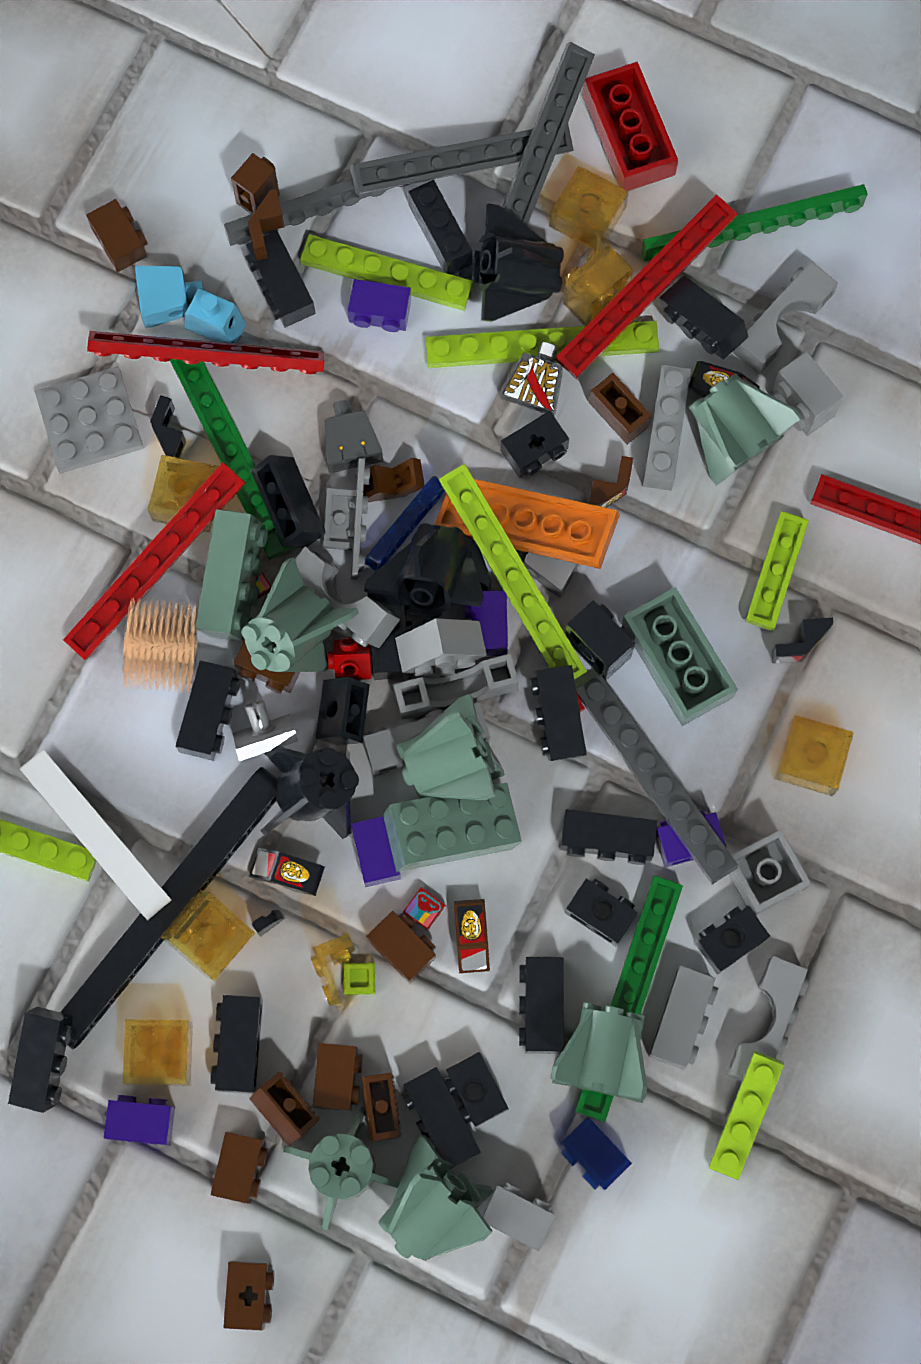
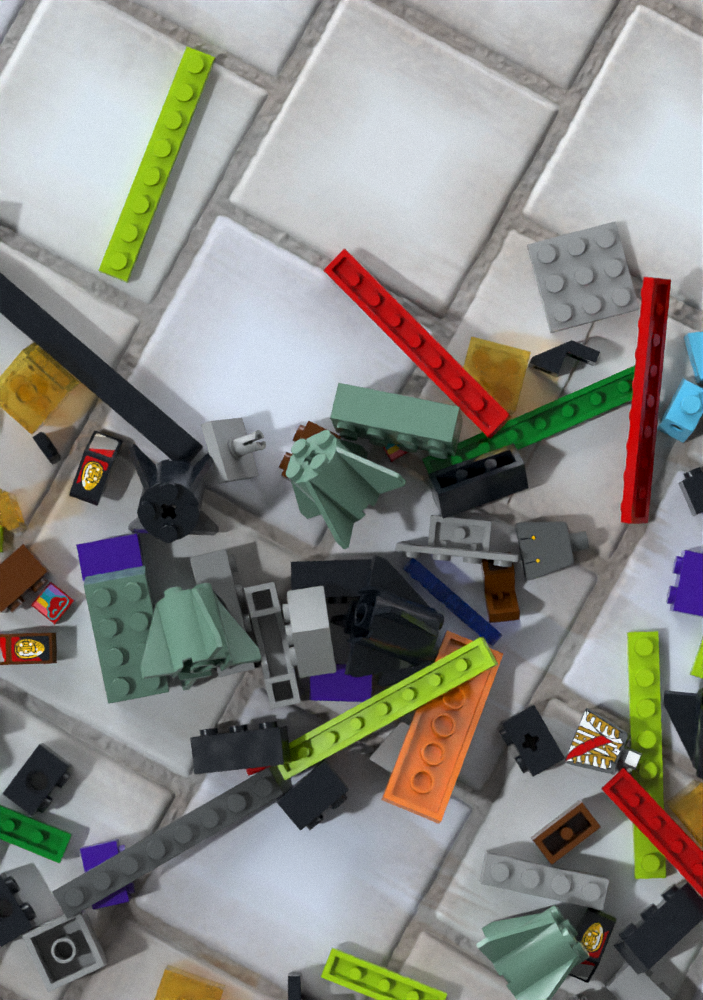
camera: 90 degrees right, 10 degrees up
(95, 835) = (140, 279): white beam -> none
(160, 645) = (326, 346): light nougat piece -> none
(208, 711) = (263, 393): black brick -> none
(342, 711) = (254, 529): black brick -> none
(350, 659) = (308, 539): red brick -> none
(373, 621) = (393, 509): light grey arch -> none
(607, 493) = (474, 809): reddish brown slope -> none
(608, 836) = (113, 791): black brick -> none
(679, 656) = (293, 876): sand green brick -> none

